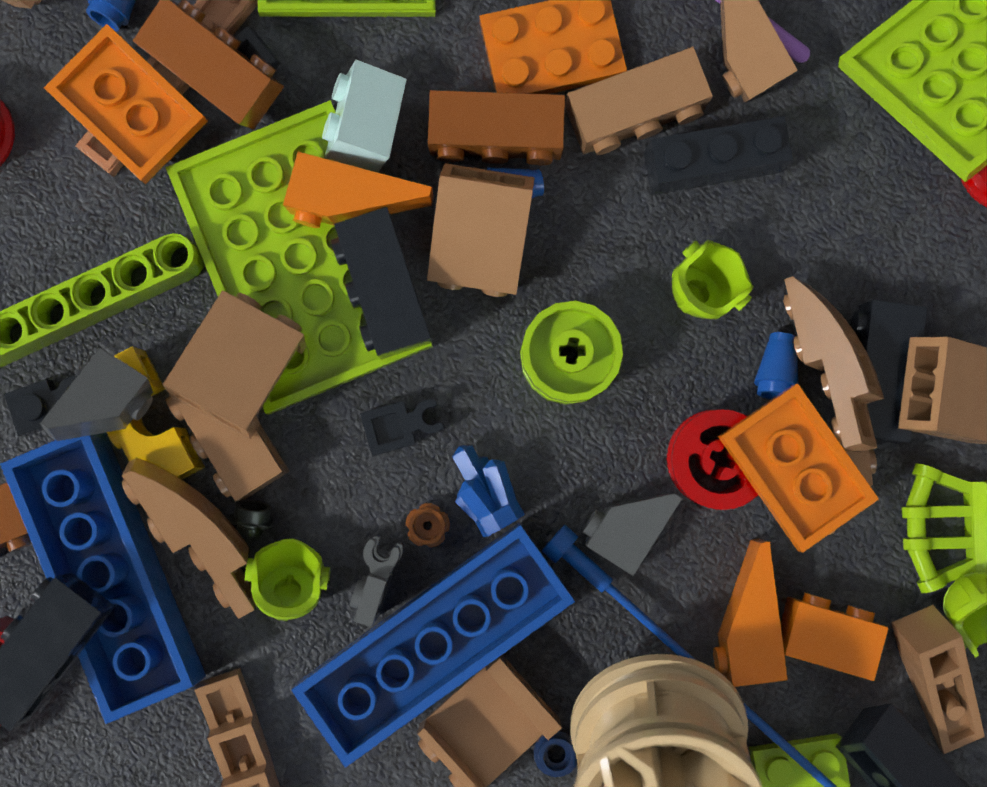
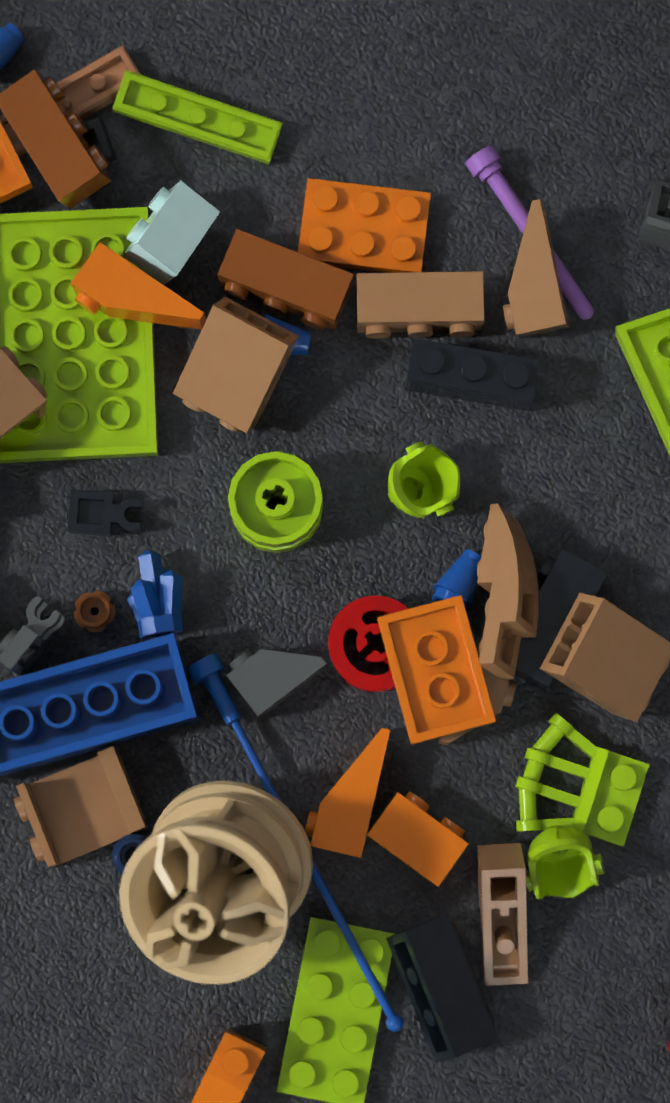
camera: 25 degrees right, 5 degrees down
(380, 284) = (130, 382): black brick -> none

